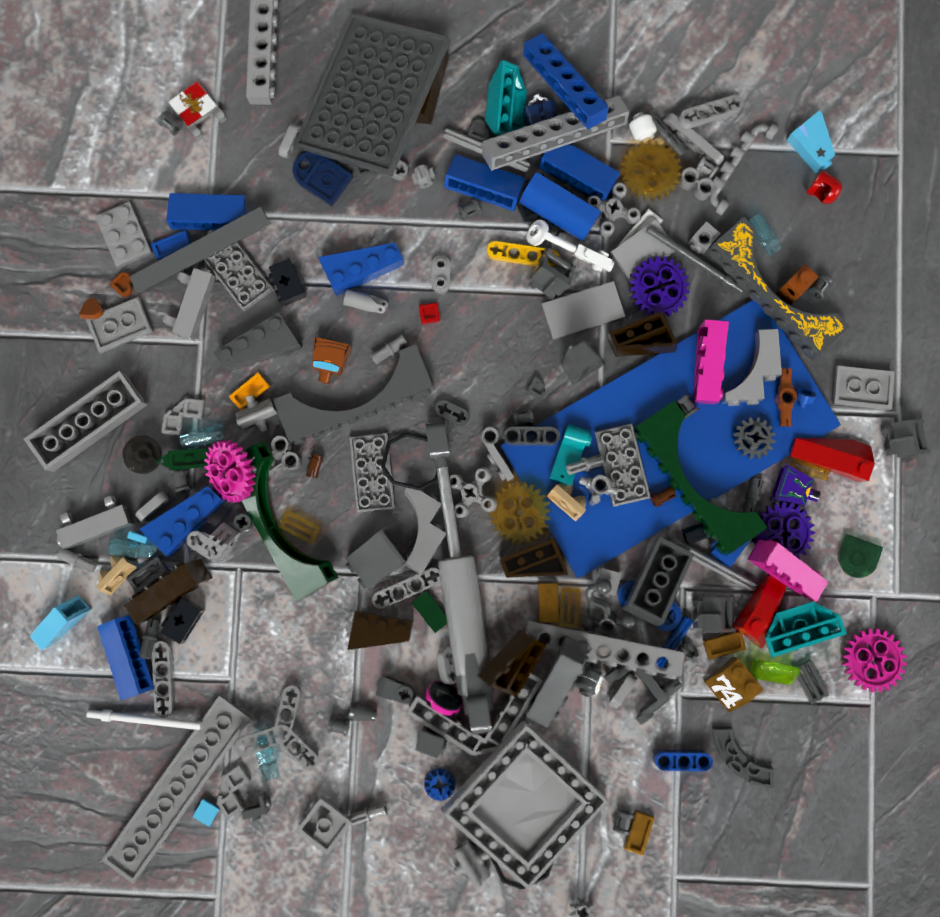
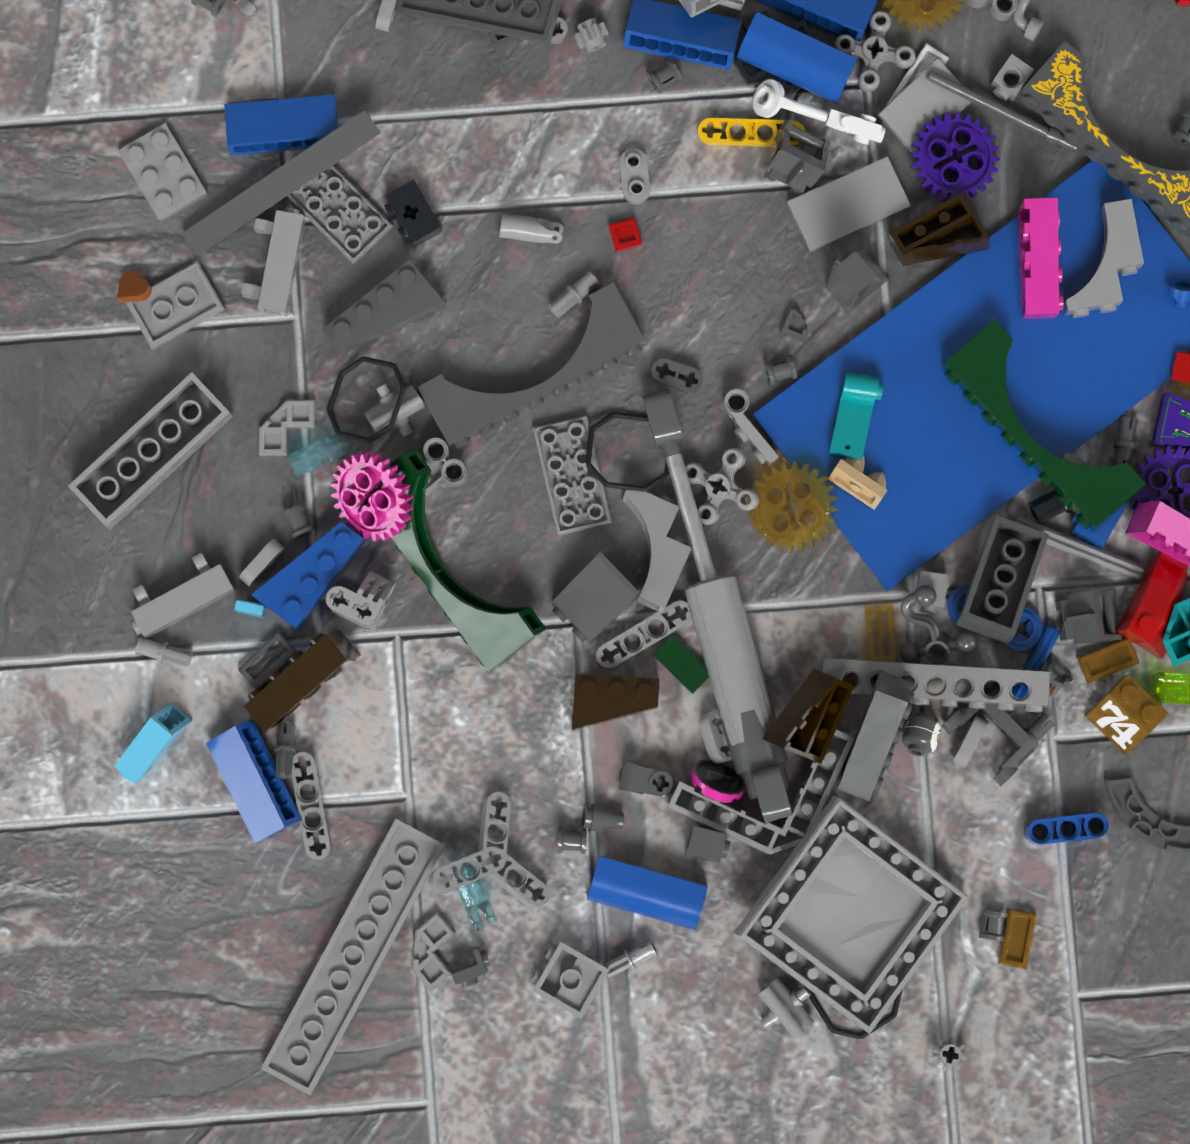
camera: 10 degrees left, 0 degrees up
(108, 715) = (239, 867): white bar -> none
(111, 580) = (229, 657): tan tile -> none
(122, 284) = (171, 245): dark orange tile -> none
(130, 548) = (238, 626): clear light blue piece -> none
(141, 454) = (239, 488): clear smoke cone -> none
(170, 244) = (235, 180): blue tile -> none
(181, 632) = (340, 709): black brick -> none
(184, 459) = (302, 487): dark green plate -> none
(206, 812) = (398, 985): medium azure tile -> none
(240, 527) = (391, 562): dark grey bush -> none
(254, 386) = (377, 375): light orange tile -> none
(254, 413) = (396, 410): none -> black piece
(314, 464) = (487, 475): reddish brown pin -> none
(314, 534) = (500, 575): clear yellow tile -> none
(322, 177) = (442, 54): dark blue tile -> none
(329, 358) = (489, 317): dark orange torso -> none
(360, 266) = (515, 179): blue wedge -> none
(386, 768) = (647, 893): none -> blue brick
(445, 777) = (714, 899): blue gear -> none
(535, 561) = (823, 573): dark brown wedge -> none
(539, 431) = (807, 387): dark grey beam -> none
(548, 602) = (849, 631): pearl gold tile -> none
(585, 464) = (878, 426): light grey axle -> none
(590, 484) = (898, 464): light grey pin -> none
(622, 464) = (931, 421): light grey tile -> none
(663, 496) = (994, 459): reddish brown pin -> none
(687, 406) = (1014, 325): dark grey bush -> none
(756, 431) = (1103, 359): dark grey gear -> none
(765, 235) = (1099, 61): clear light blue piece -> none
(785, 407) = (1155, 310): dark orange pin -> none
(798, 283) = (1153, 130): dark orange torso -> none

